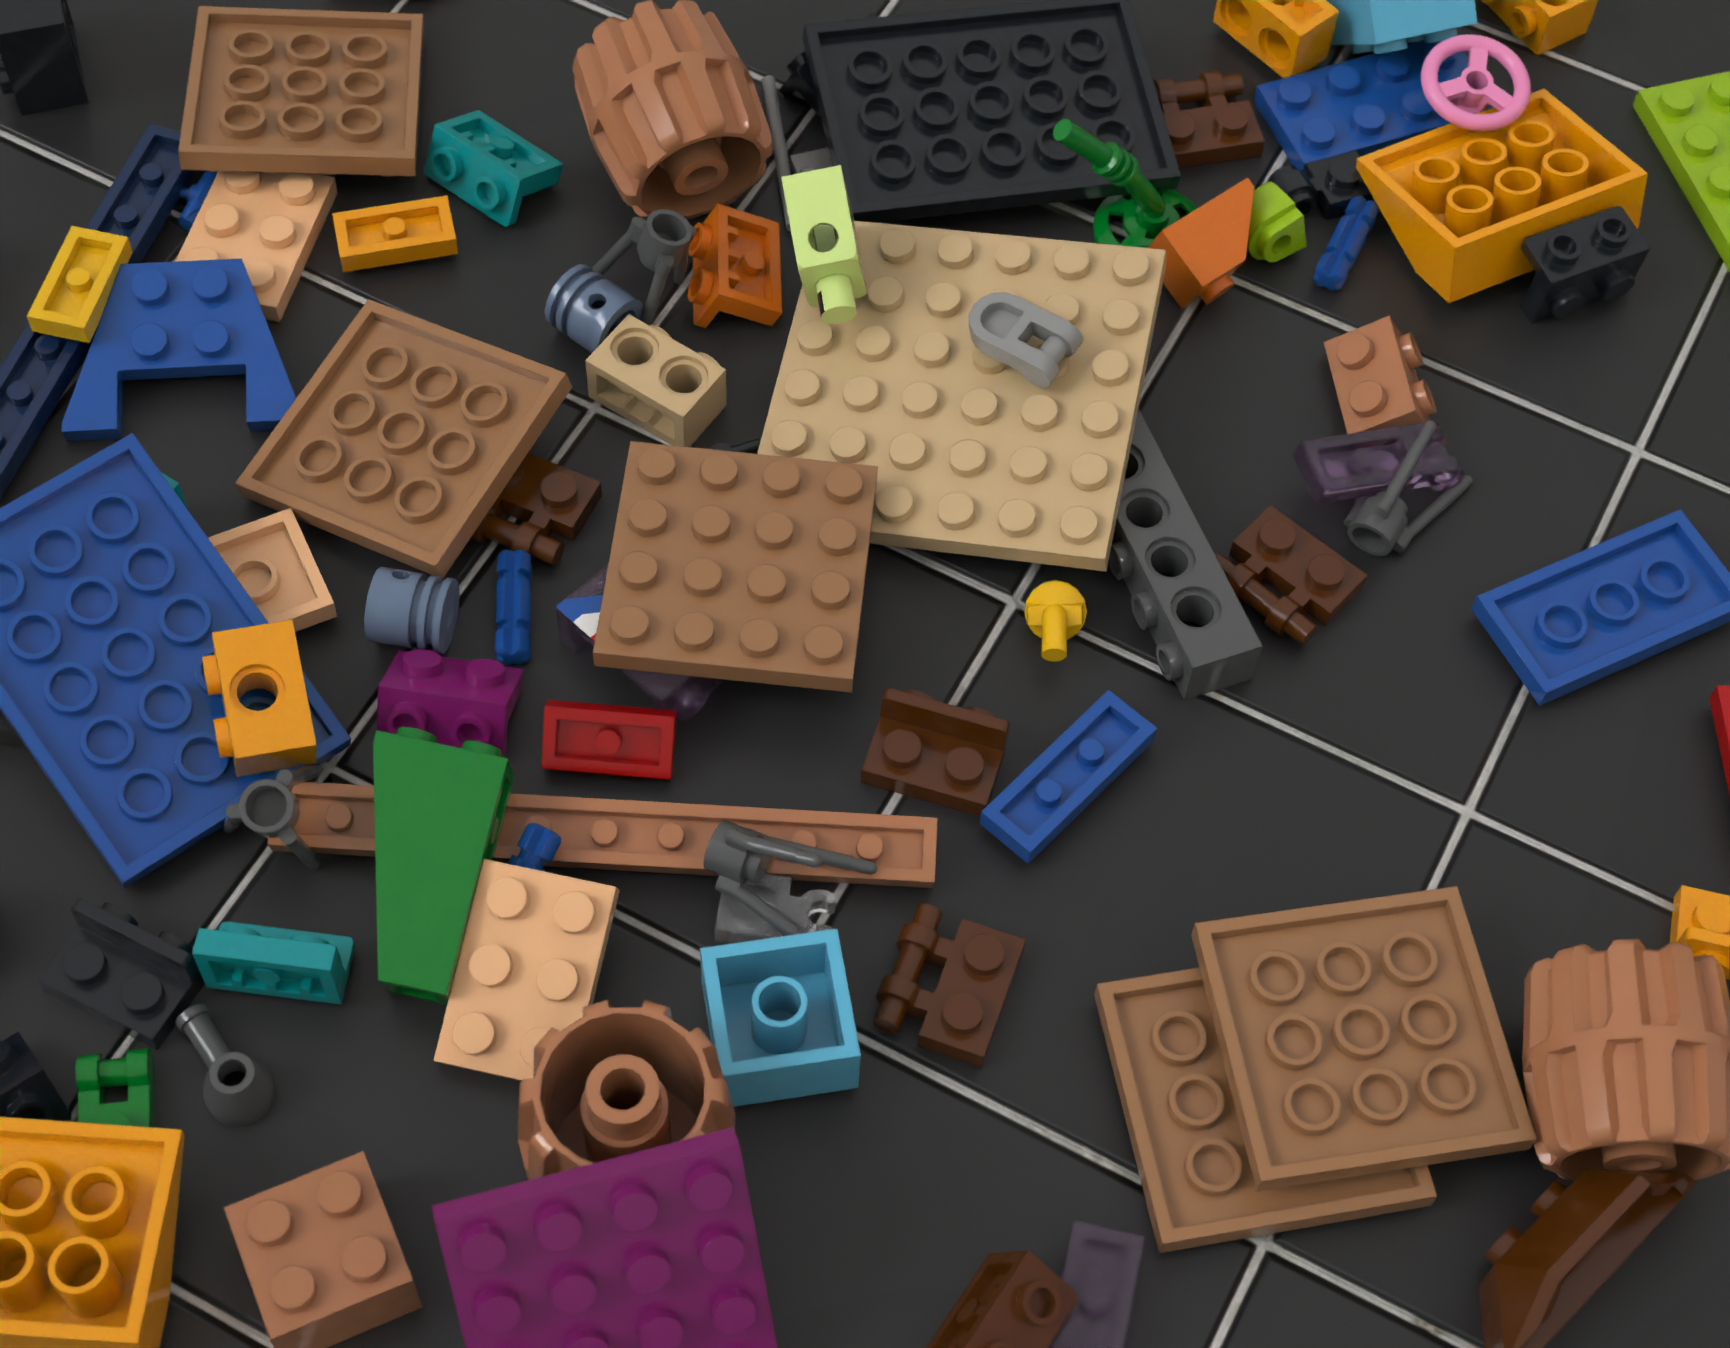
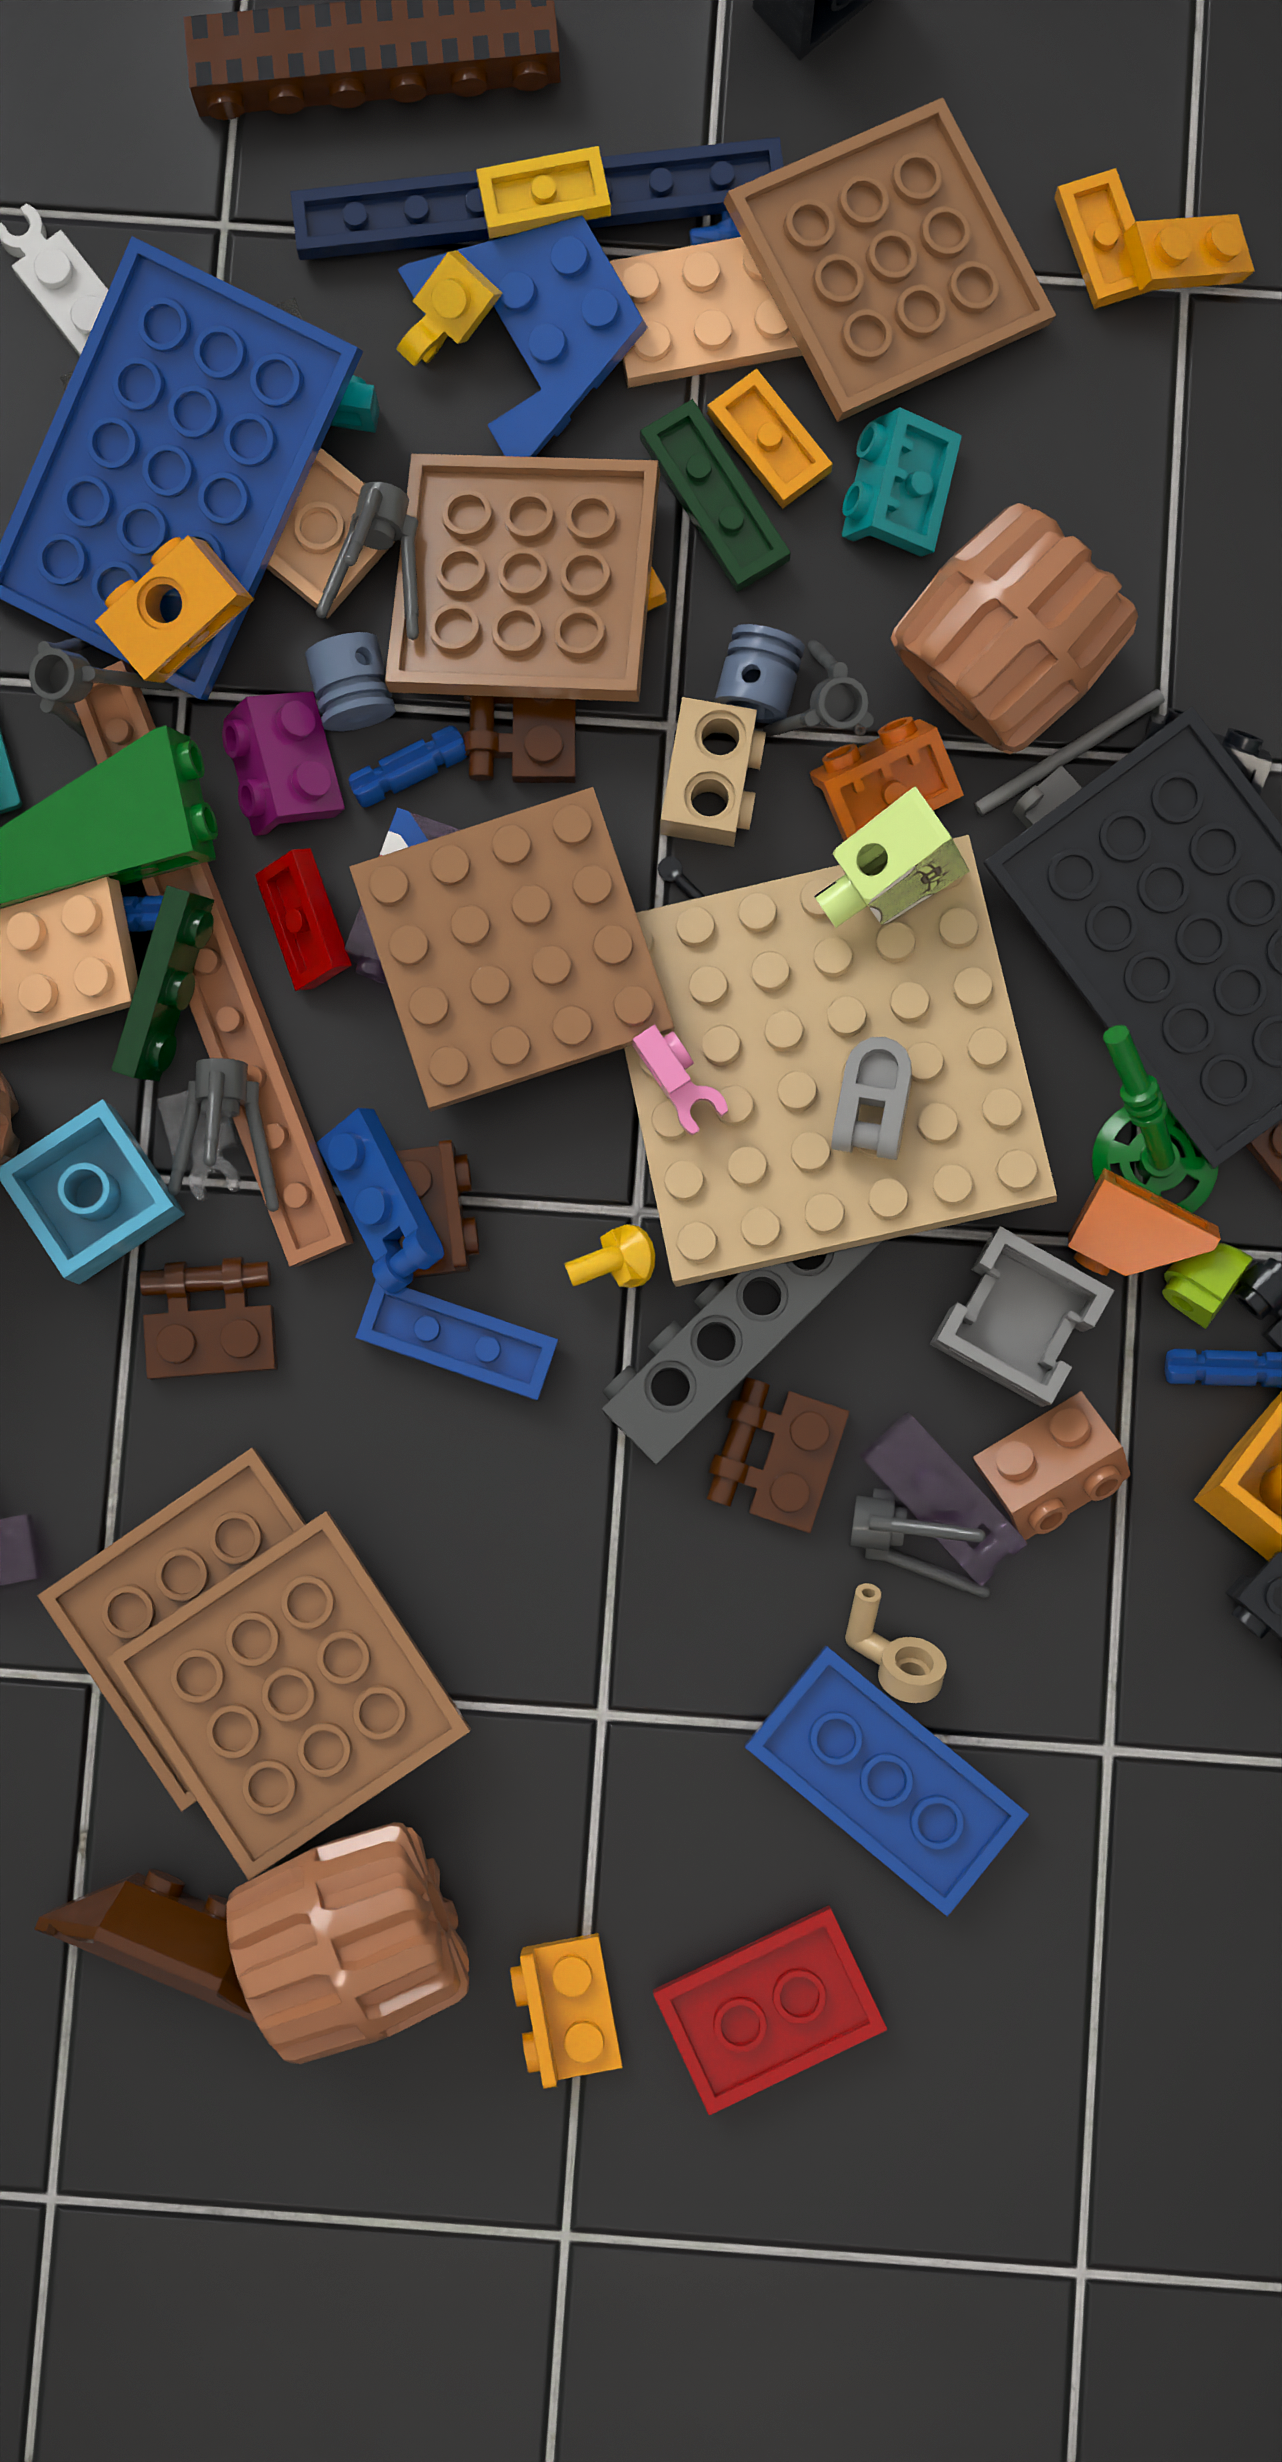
camera: 70 degrees right, 25 degrees up
(125, 391) = (453, 305): none -> yellow plate
(291, 514) = (376, 524): none -> dark grey plant
(421, 286) = (715, 495): none -> dark green plate
(614, 861) = (164, 985): none -> dark green plate
(909, 774) = (380, 1199): none -> blue plate
(918, 476) = (667, 1063): none -> bright pink plate
(1240, 349) = (1021, 1317): none -> light grey piece
(1512, 551) = (908, 1665): none -> tan plate

